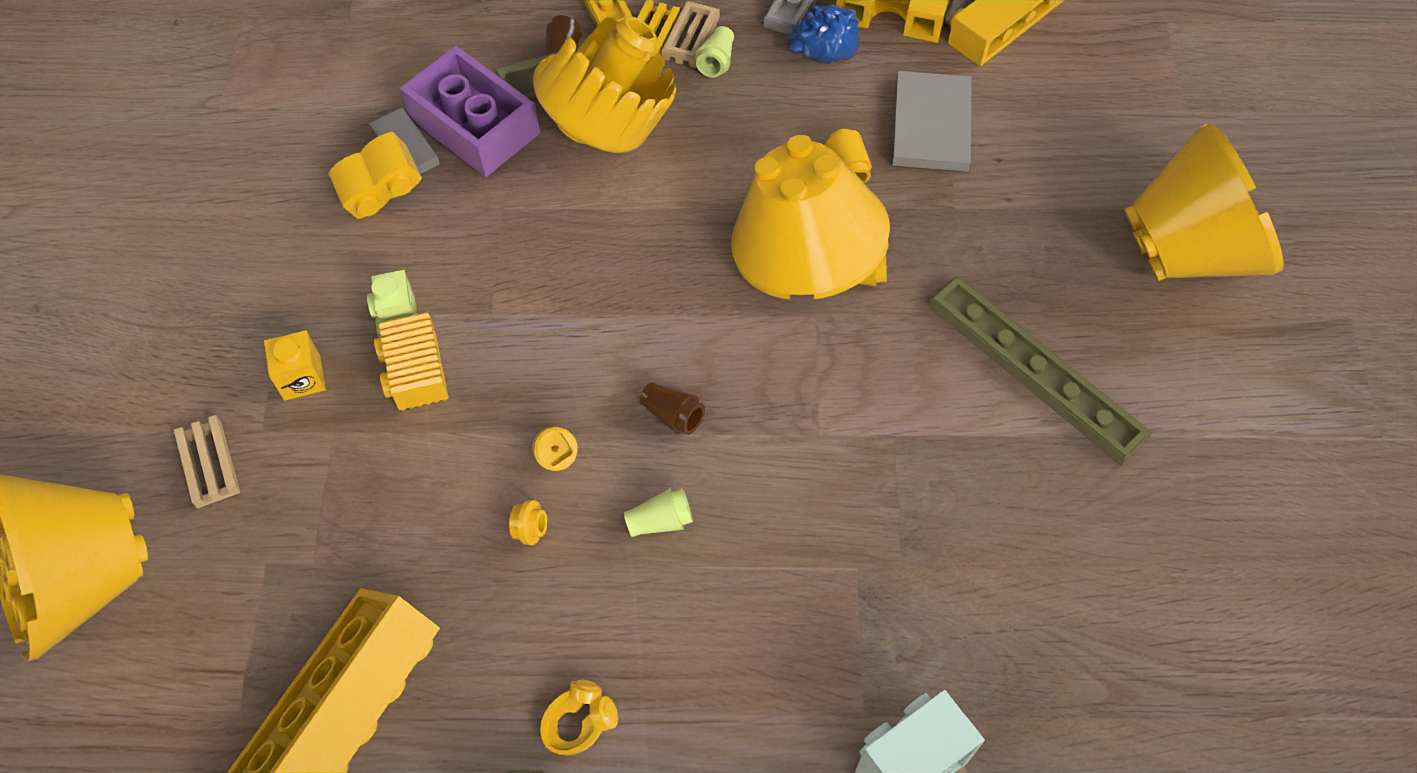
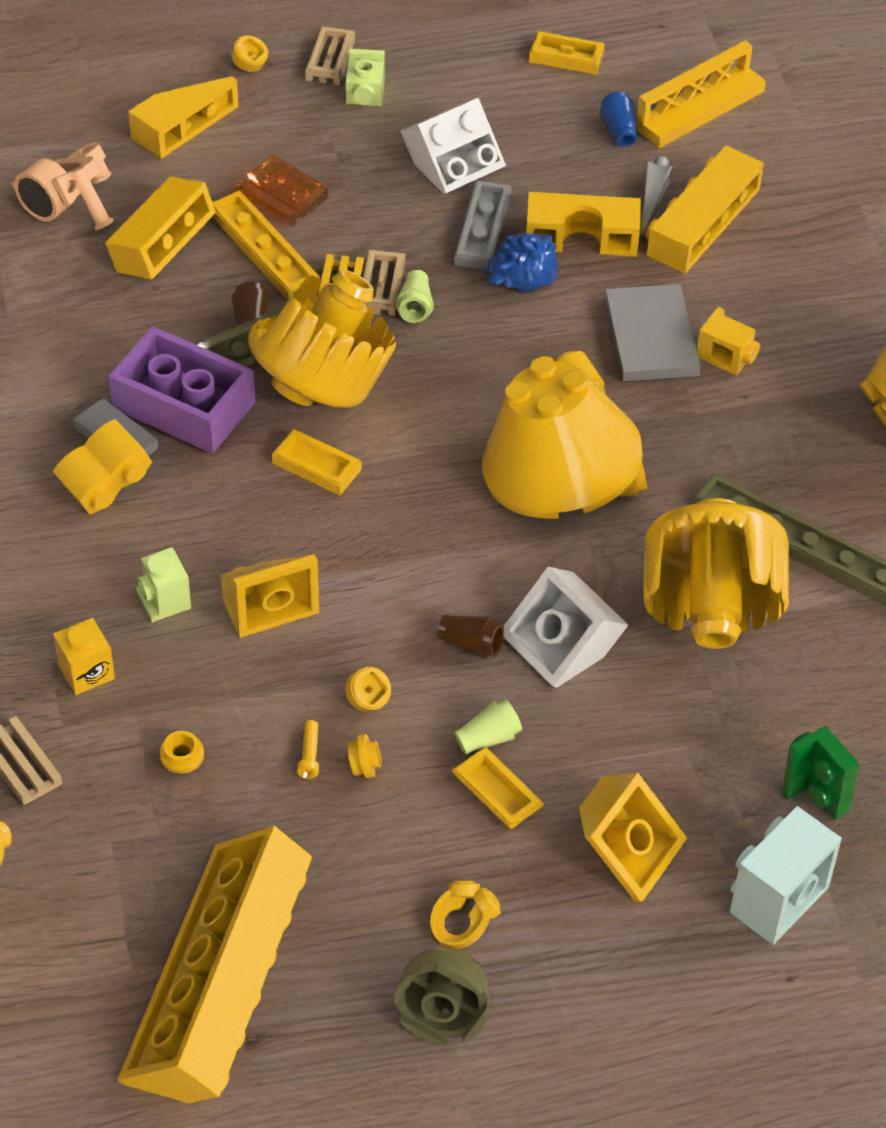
camera: 15 degrees left, 10 degrees down
(354, 472) = (178, 743): none -> yellow plate
(411, 361) = (201, 634): yellow brick -> none
(474, 520) = (308, 767): none -> yellow piece
(486, 332) = (271, 593): none -> yellow slope
(579, 201) = (316, 462): none -> yellow tile
(652, 582) = (498, 788): none -> yellow tile
(763, 416) = (562, 626): none -> white slope
(767, 665) = (630, 831): none -> yellow slope
(930, 386) = (717, 568): none -> yellow piece
(992, 633) = (824, 767): none -> green bracket
(1002, 142) = (727, 343): none -> yellow brick

